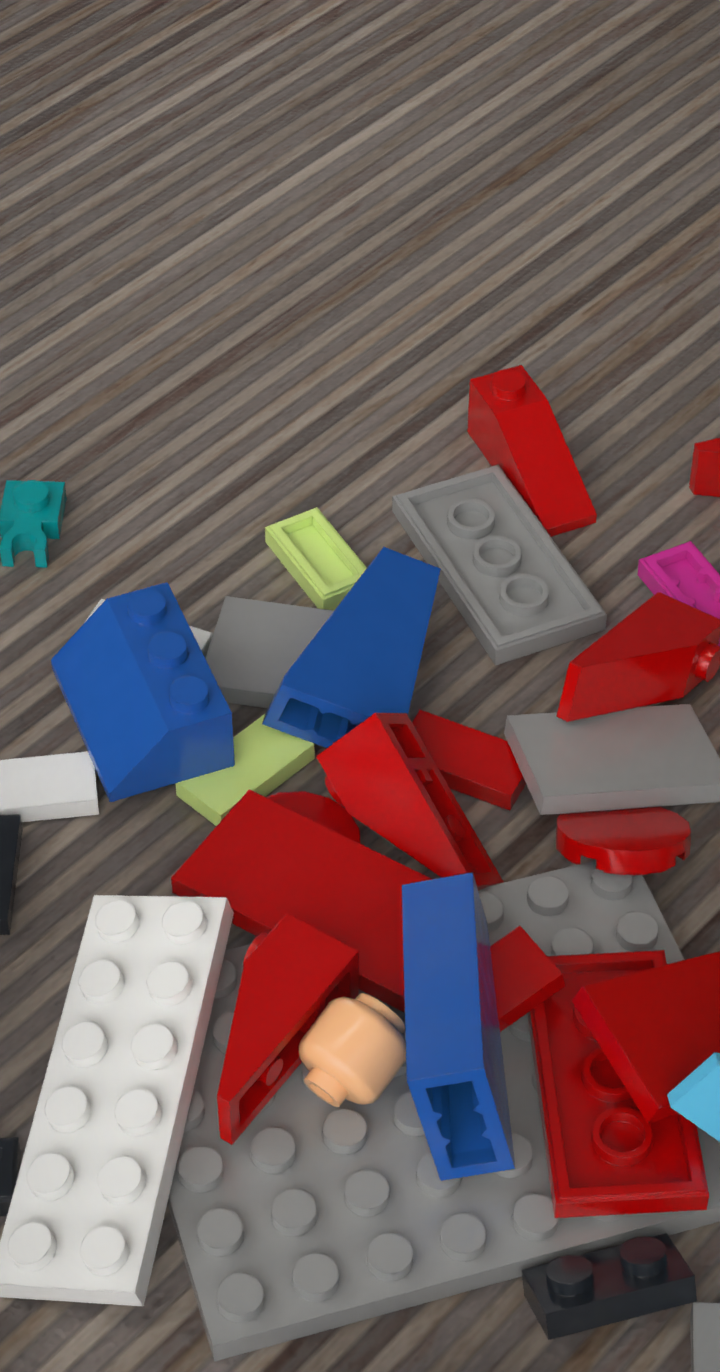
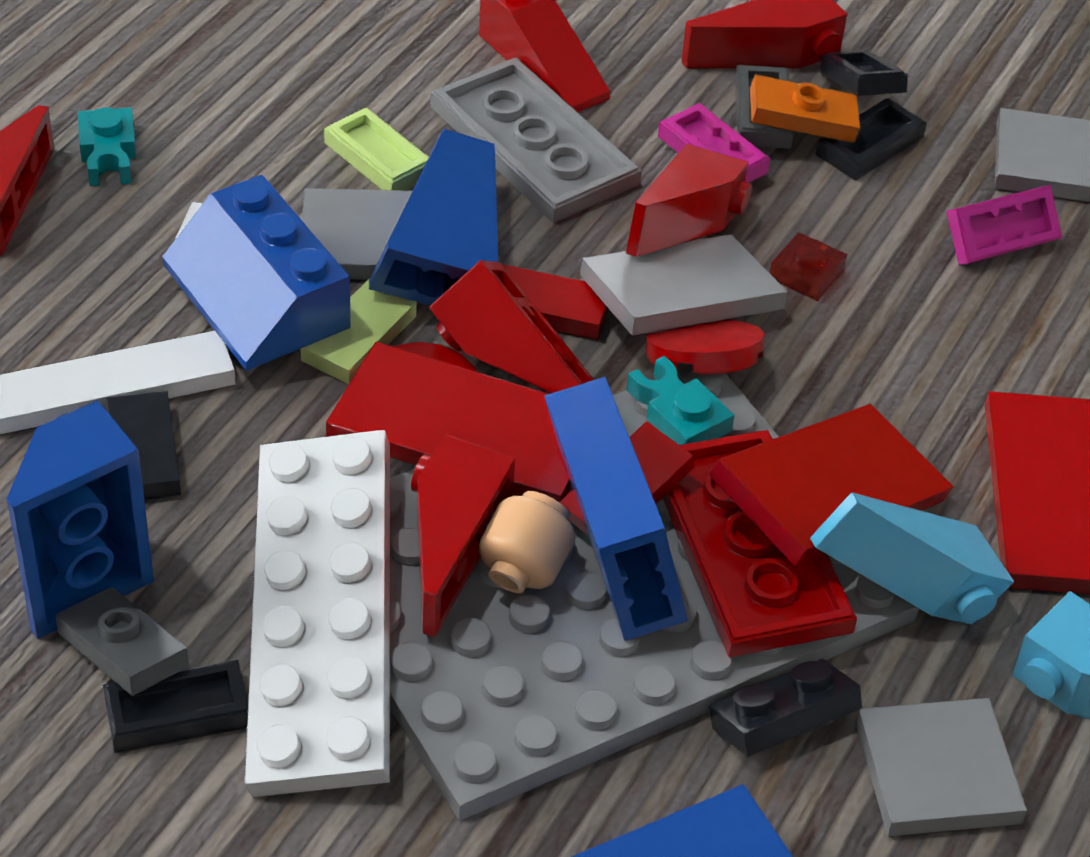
camera: 15 degrees left, 0 degrees up
(571, 913) = (677, 409): none -> teal plate

